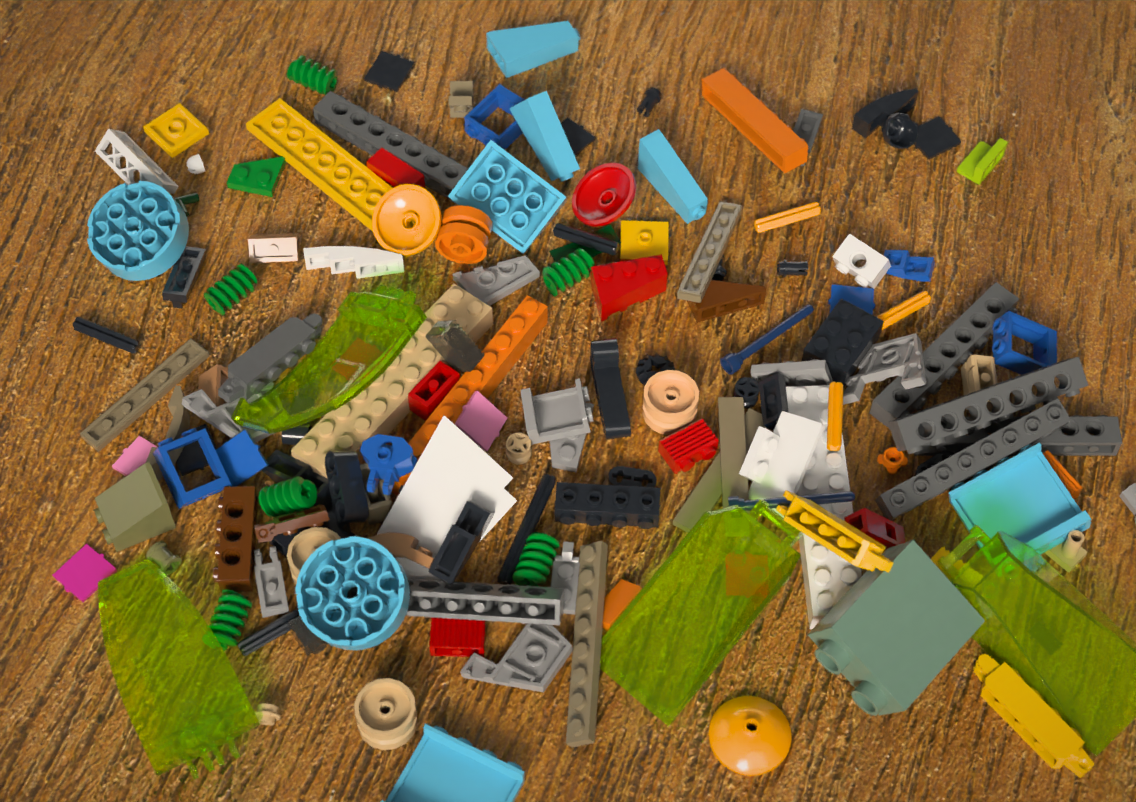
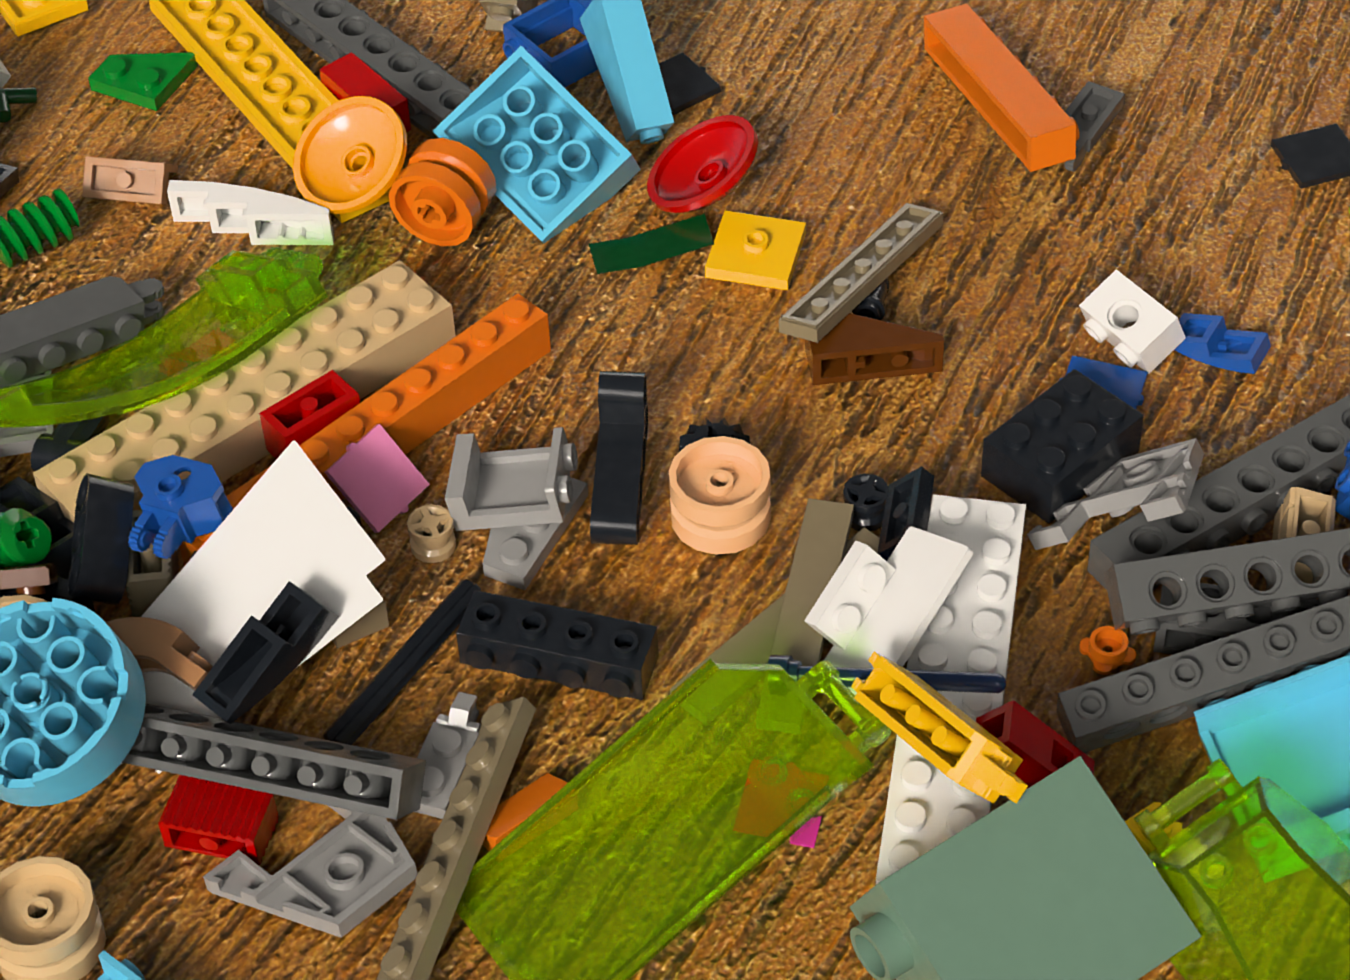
camera: 15 degrees right, 10 degrees down
(195, 164) = (49, 48): white hinge -> none
(455, 345) = (361, 346): clear smoke brick -> none
(497, 281) = (485, 275): light grey wing -> none
(535, 560) = (400, 711): green piece -> none
(566, 270) = (605, 270): green piece -> none
(586, 239) = (654, 230): black axle -> none
(627, 282) = (704, 302): red wedge -> none
(631, 477) = (618, 605): black beam -> none
(651, 97) = (834, 38): black pin -> none
(670, 177) = (826, 151): medium azure slope -> none
(688, 446) = (734, 572): red brick -> none
(732, 361) = (855, 451): dark blue piece -> none
(787, 217) = (1019, 242): light orange axle -> none
(792, 268) = (1005, 319): black pin -> none
(795, 373) = (964, 476): light grey wing -> none
(835, 411) = (1006, 550): light orange axle -> none
(875, 113) = (1237, 103): black slope -> none
(899, 131) = (1255, 132): black hair -> none
(904, 308) = (1193, 410): light orange axle -> none

